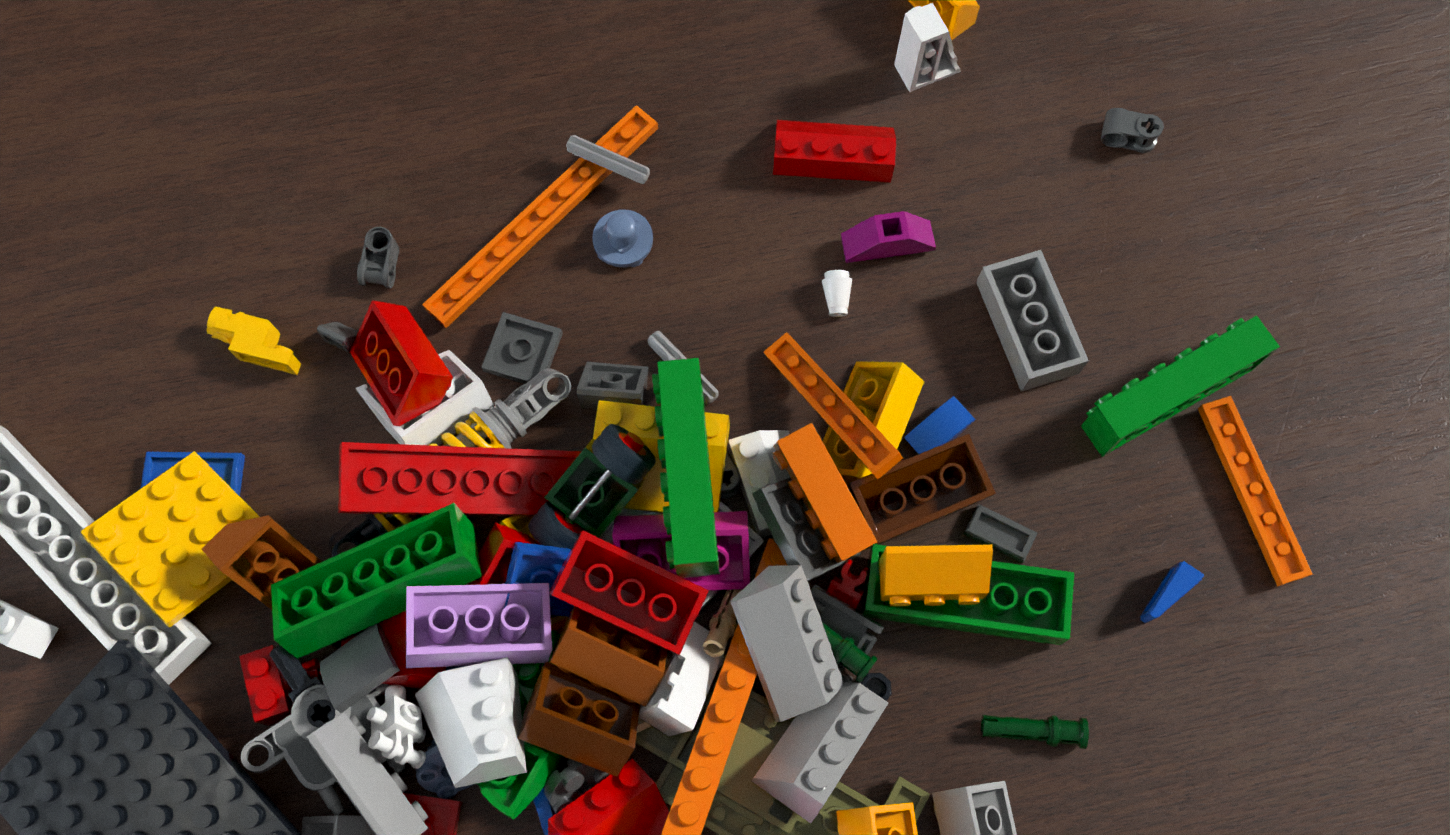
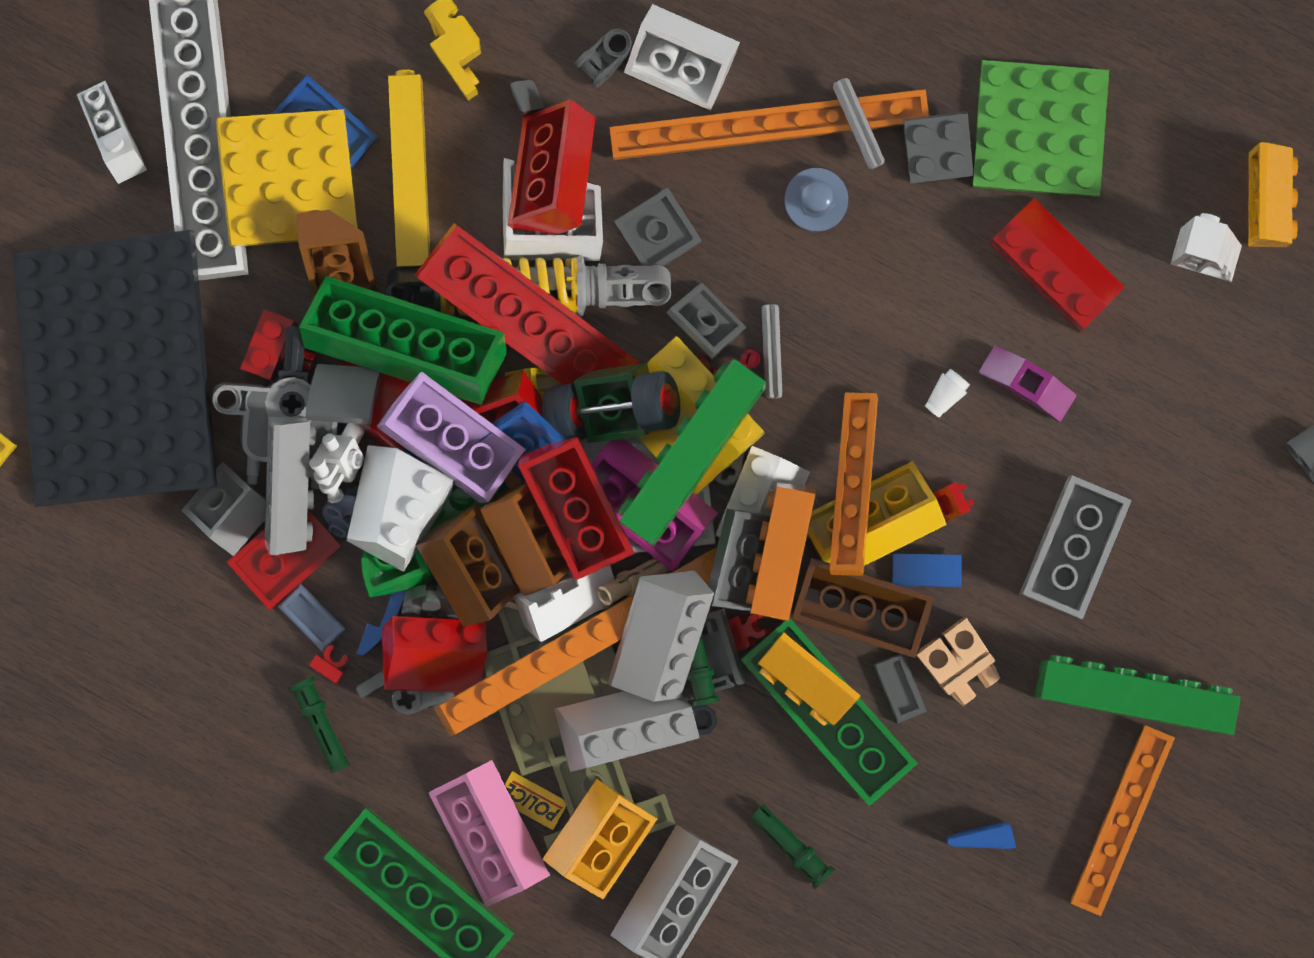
camera: 45 degrees right, 15 degrees up
(282, 454) = (409, 169): none -> yellow brick
(437, 218) = (681, 57): none -> white slope
(679, 135) = (938, 147): none -> dark grey plate
(740, 74) = (1040, 128): none -> bright green plate
(915, 359) = (952, 501): none -> red tile
(1024, 471) = (965, 660): none -> light nougat hips

